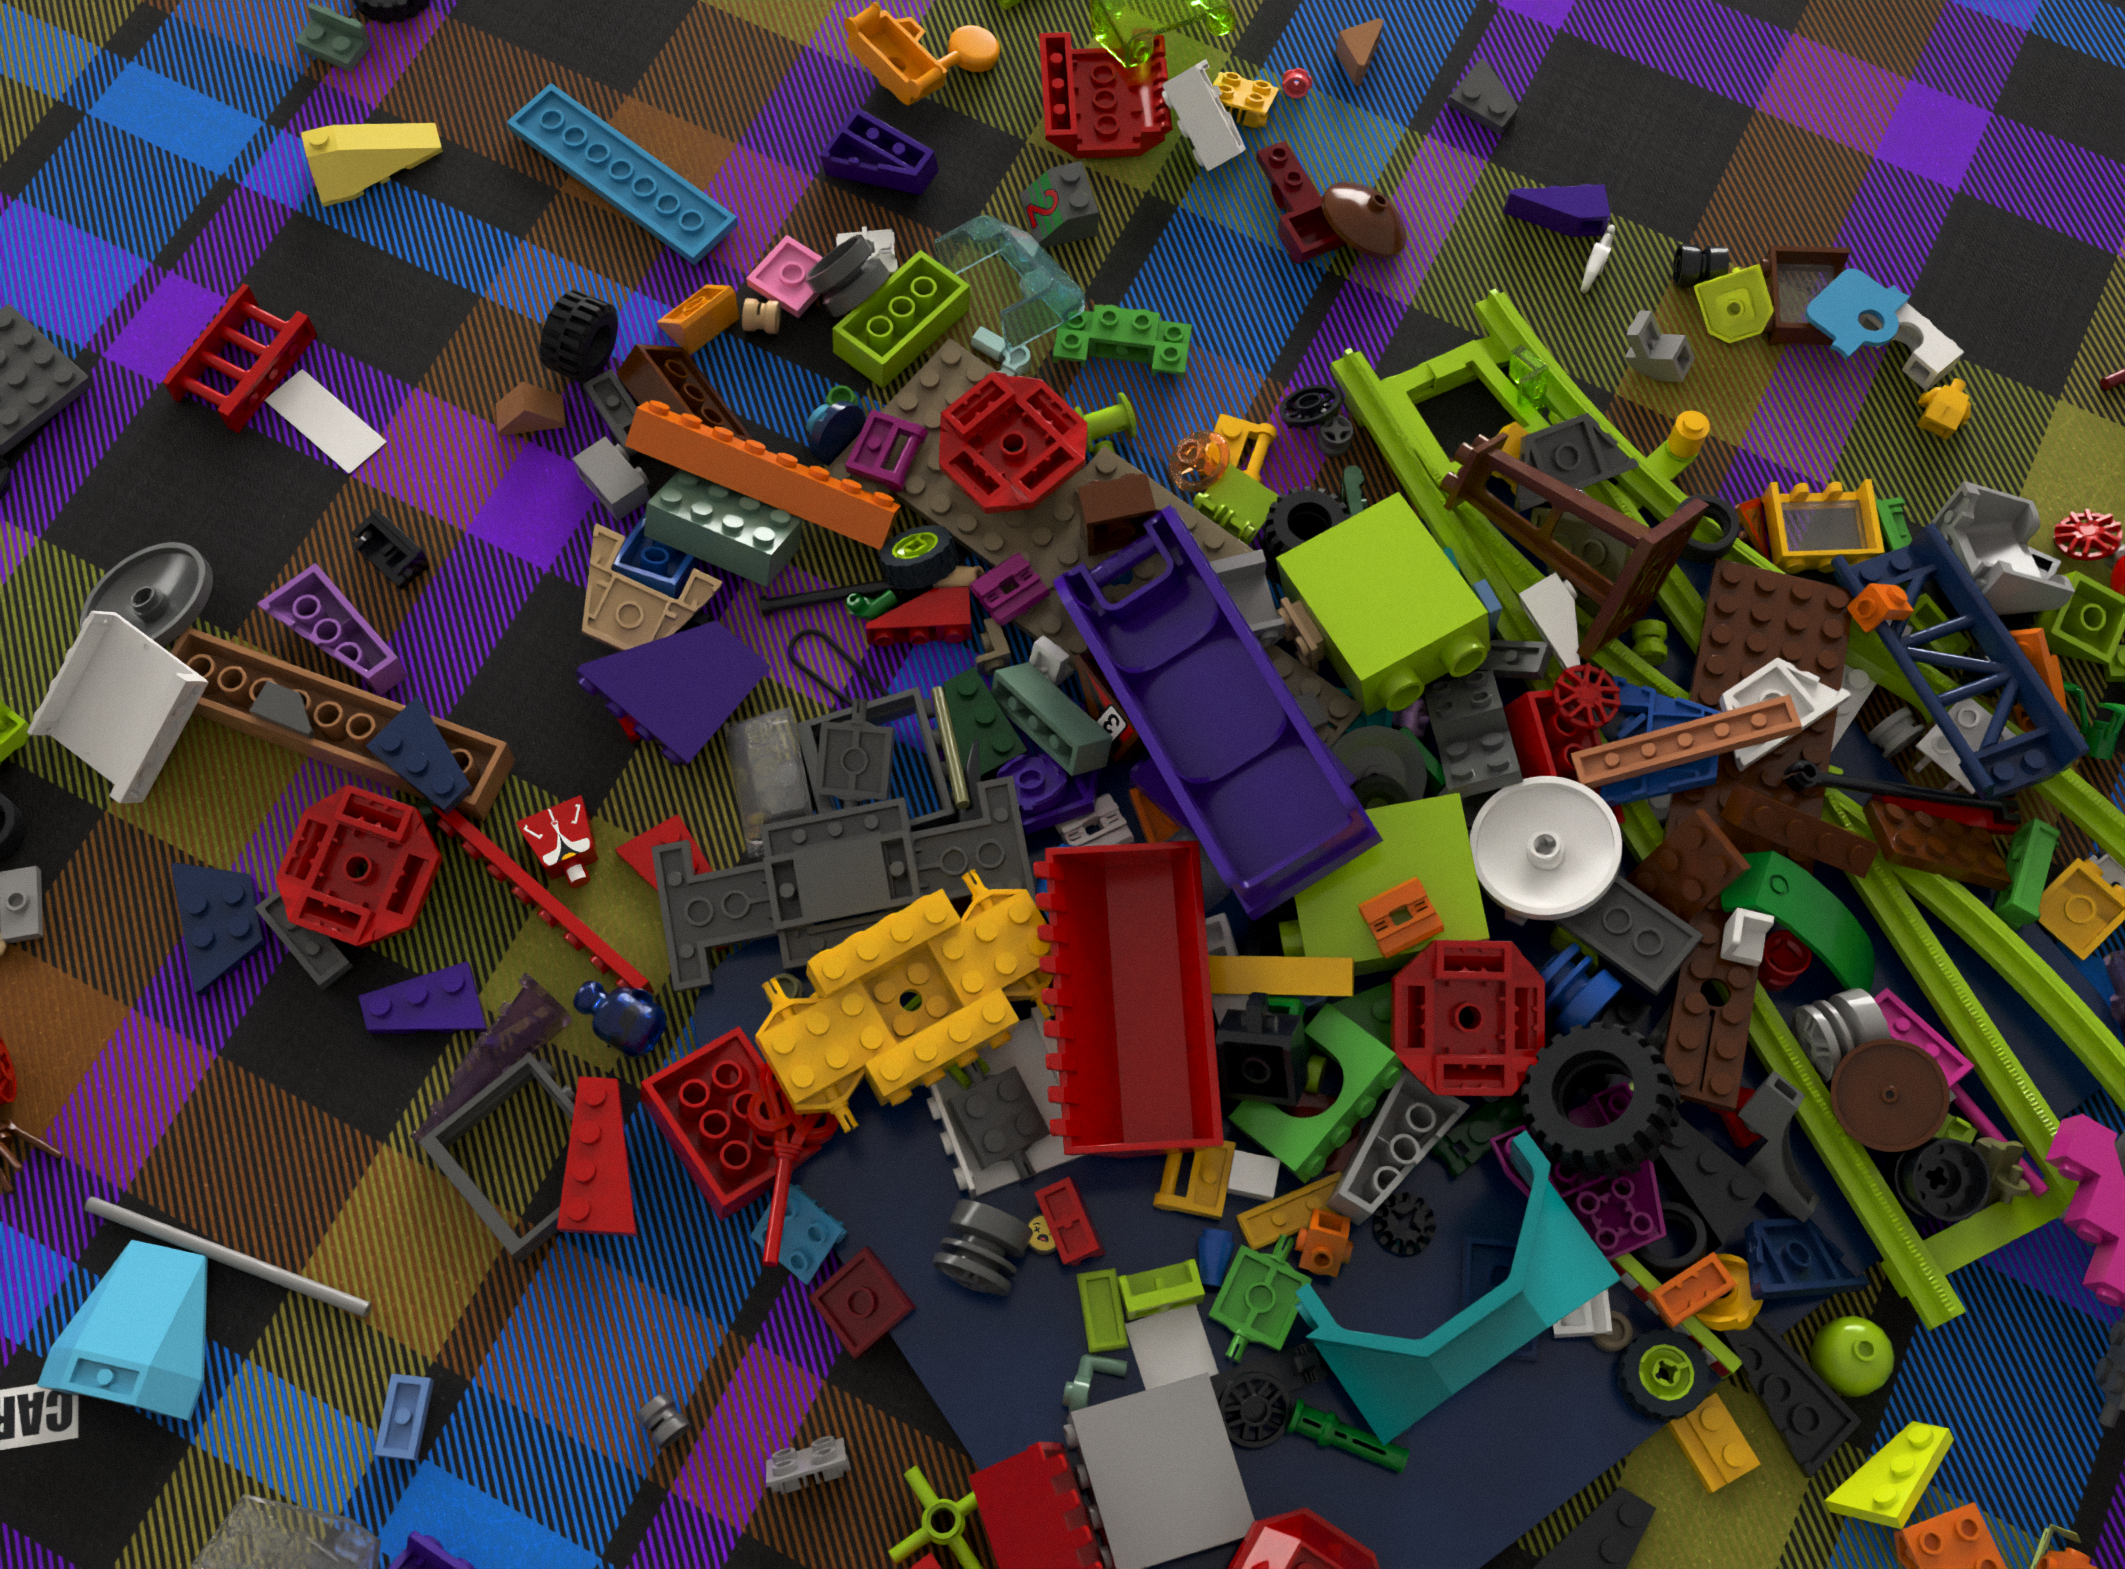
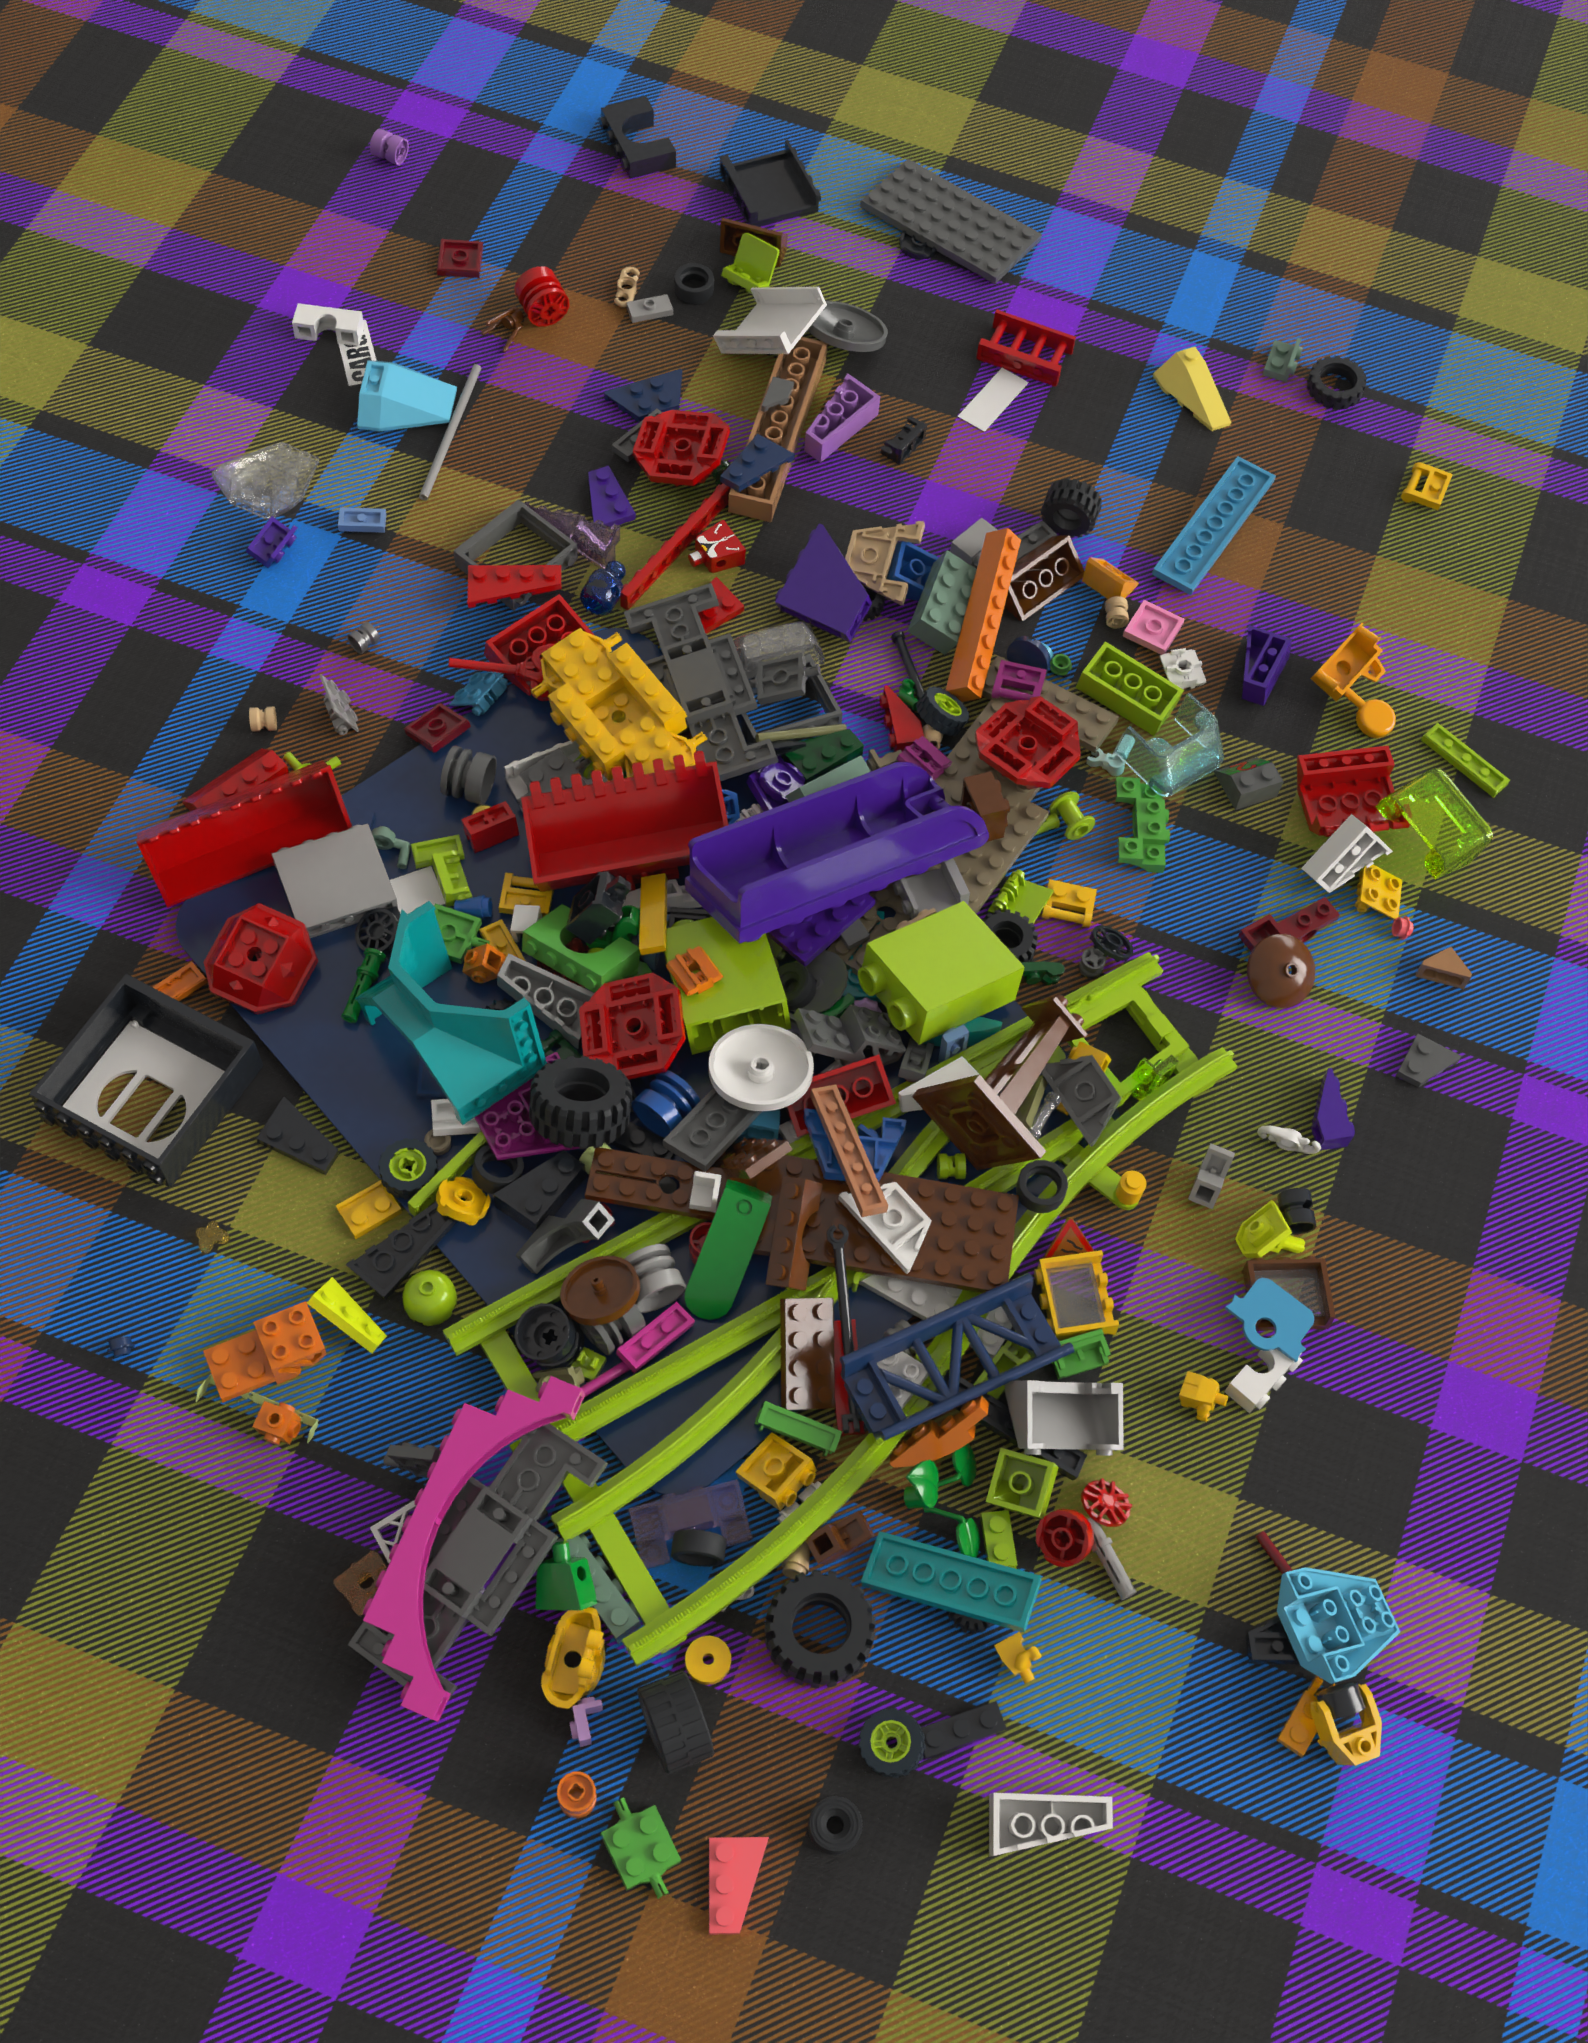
camera: 80 degrees right, 5 degrees down
(529, 410) = (1019, 500): medium nougat slope -> none
(842, 653) = (869, 688): black piece -> none
(847, 276) = (1150, 647): dark grey wheel -> none
(1193, 456) = (1054, 870): clear orange piece -> none
(1586, 696) = (884, 1097): red wheel -> none
(1692, 1290) = (460, 1172): orange plate -> none
(1795, 1261) = (487, 1246): dark blue wing -> none
(1879, 603) = (991, 1301): orange bracket -> none

